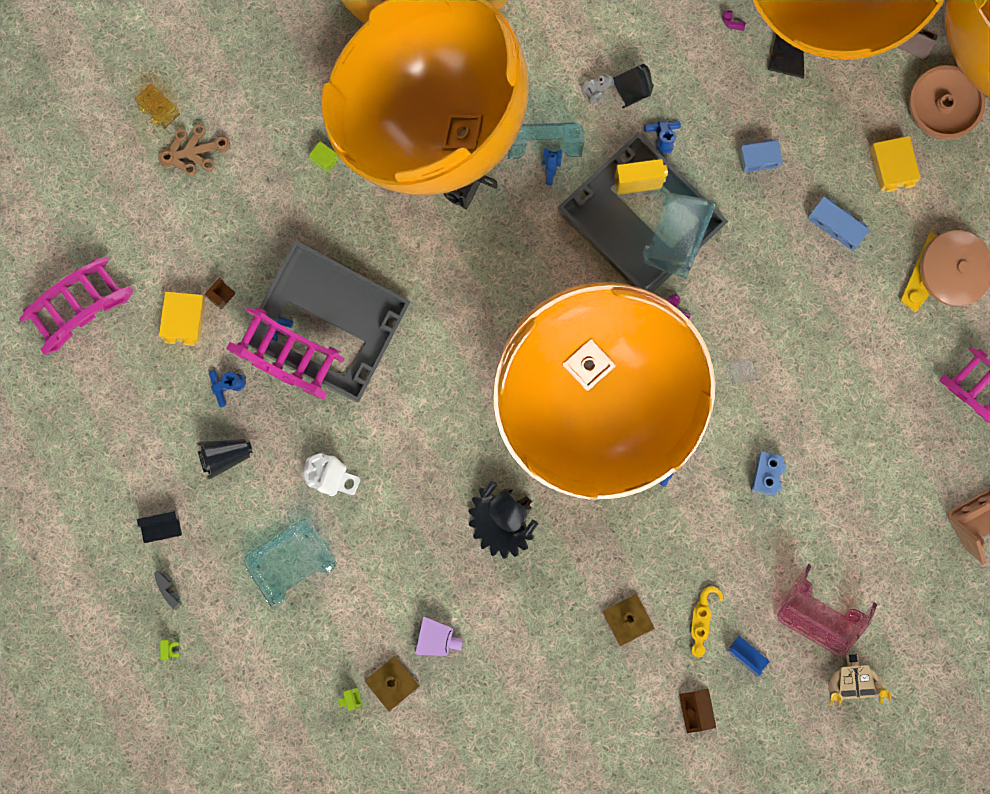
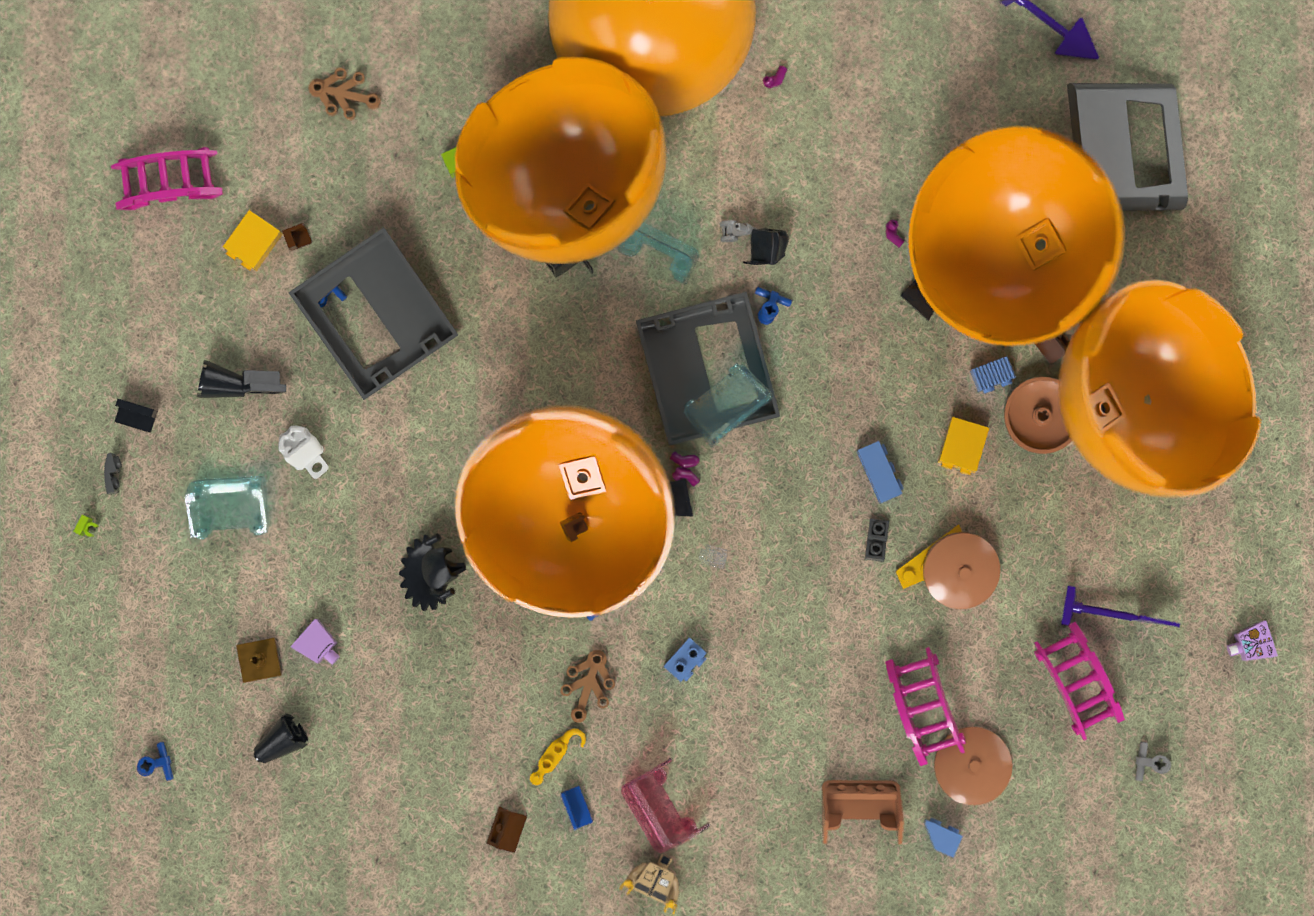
camera: 35 degrees right, 5 degrees up
(156, 106) = (332, 36): clear yellow brick -> none
(229, 381) = (261, 321): blue piece -> none
(260, 435) = (262, 382): none -> panel
(275, 369) = (306, 332): dark pink fence -> none
(351, 700) = (216, 655): lime tile -> none
(452, 744) = (281, 740): none -> black cone
(551, 160) = (655, 274): blue piece -> none
(605, 410) = (574, 526): none -> reddish brown panel
(628, 620) = (491, 718): pearl gold tile -> none
(640, 176) = (721, 334): yellow brick -> none
(696, 540) = (589, 682): none -> medium nougat plant
(760, 155) = (844, 372): medium blue brick -> none
(868, 282) = (876, 540): none -> dark grey slope
(884, 92) = (993, 374): none -> medium blue brick

